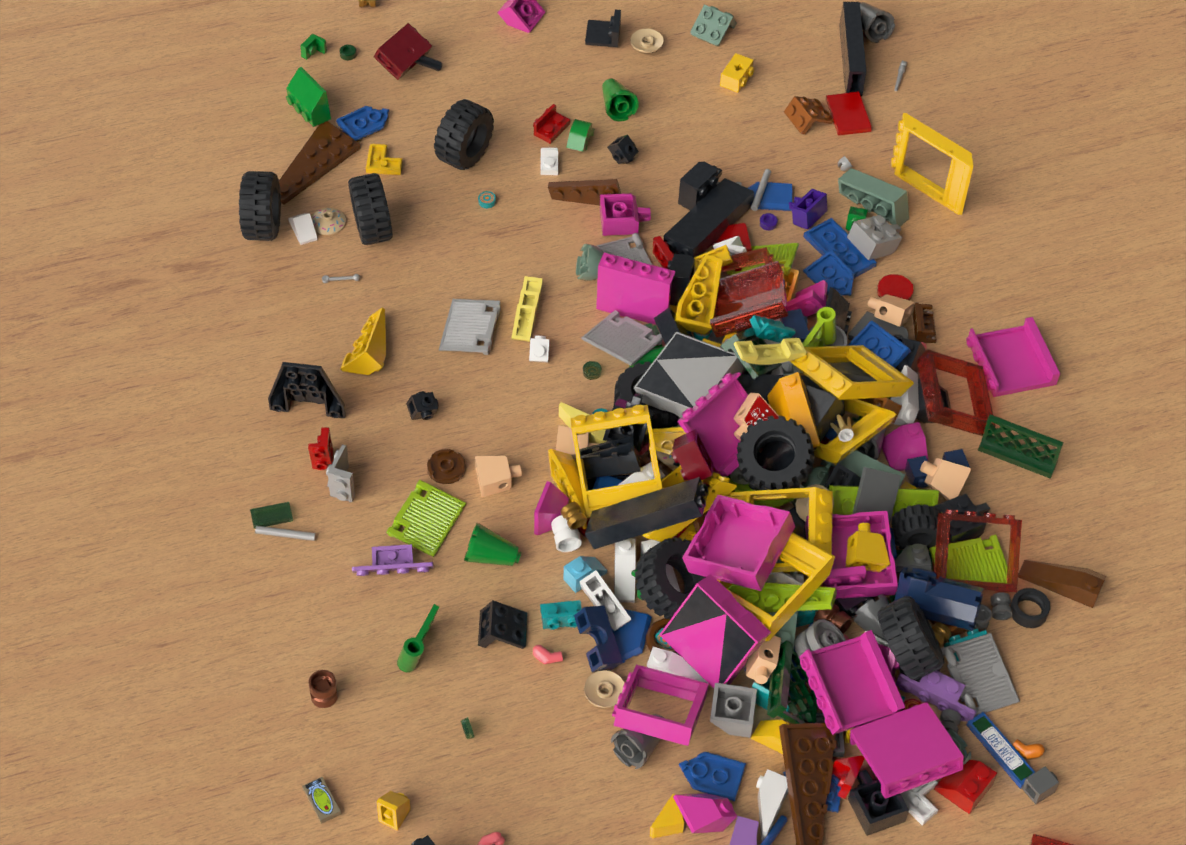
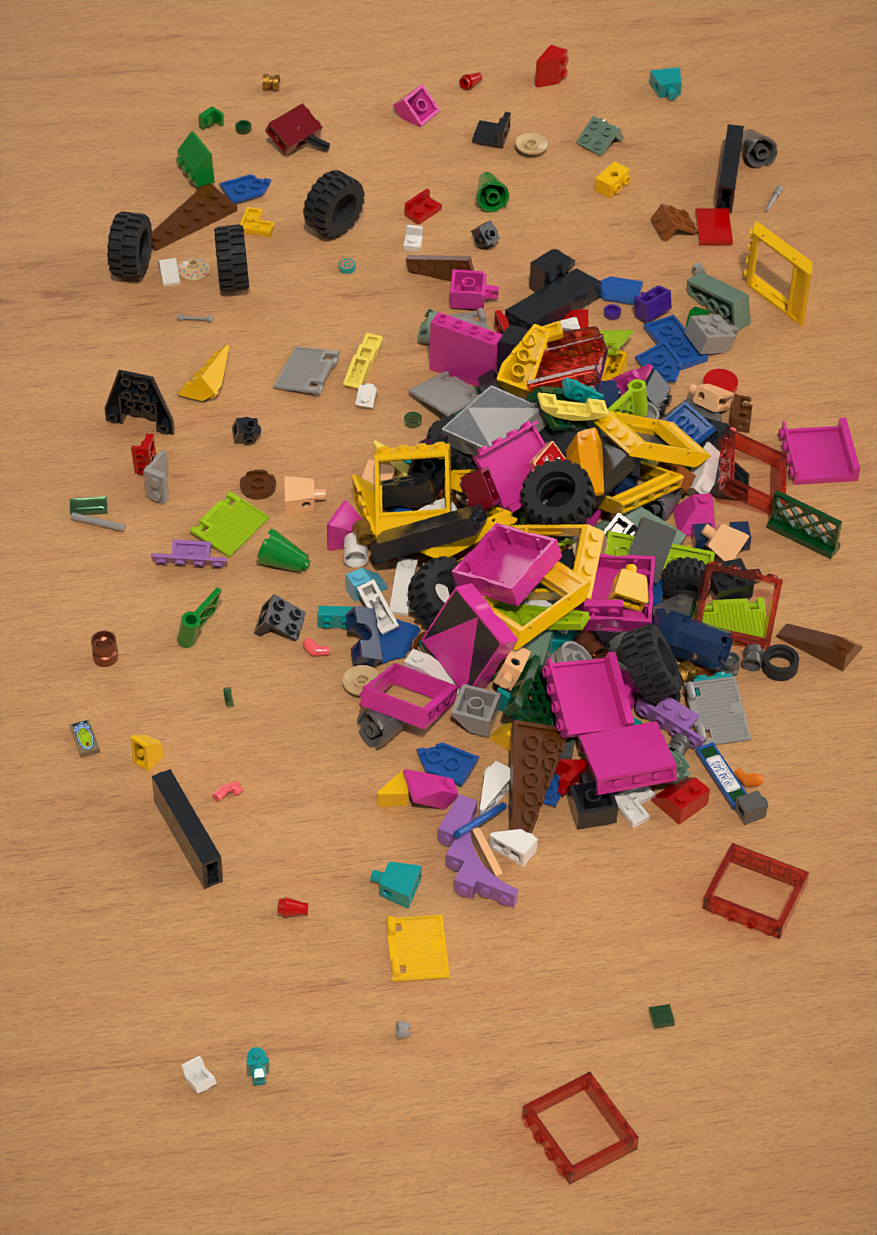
camera: 10 degrees right, 5 degrees down
(579, 135) = (446, 218): green brick -> none
(756, 202) = (610, 283): light grey bar -> none
(844, 431) = (630, 486): piece -> none

